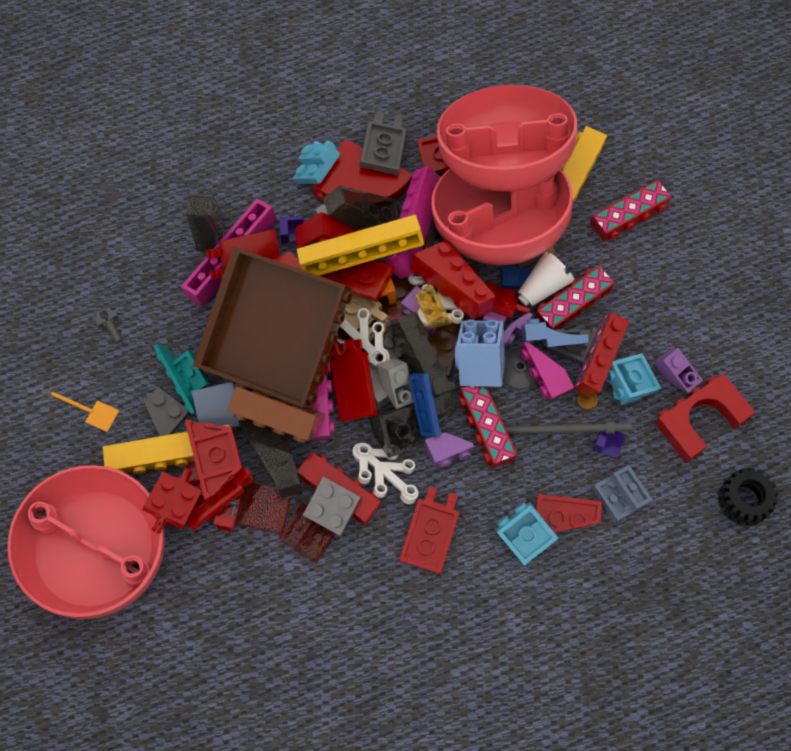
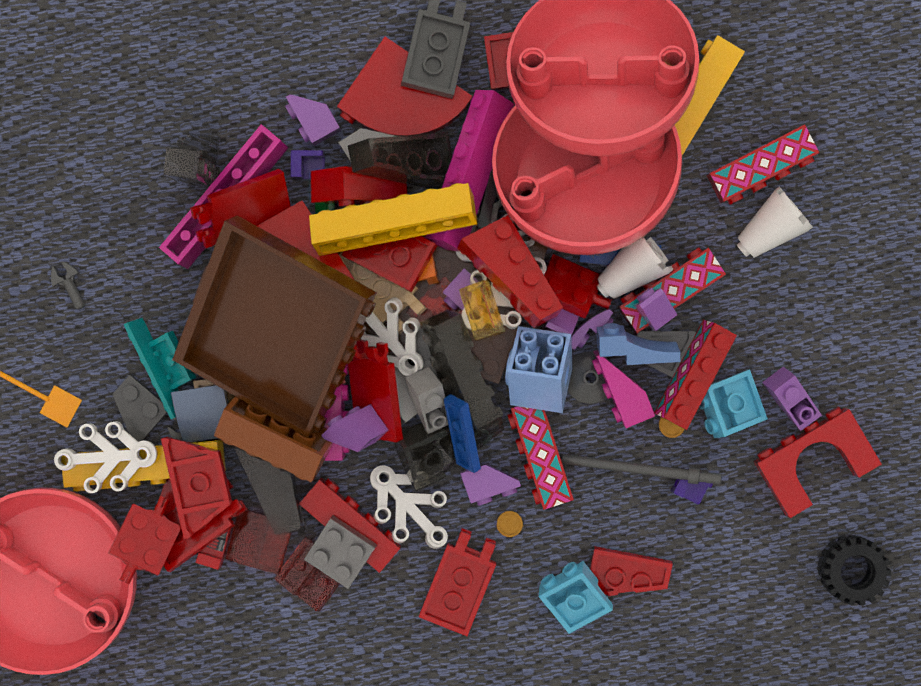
camera: 10 degrees right, 20 degrees up
(143, 440) = (111, 456): none -> white plant
(296, 198) = (314, 117): none -> medium lavender slope
(316, 162) = (344, 70): medium azure plate -> none
(340, 406) = (357, 429): none -> medium lavender slope
(467, 483) = (509, 523): none -> pearl gold piece
(564, 302) = (655, 308): none -> medium lavender slope
(621, 494) = (699, 551): sand blue slope -> none
(645, 248) = (773, 225): none -> white cone

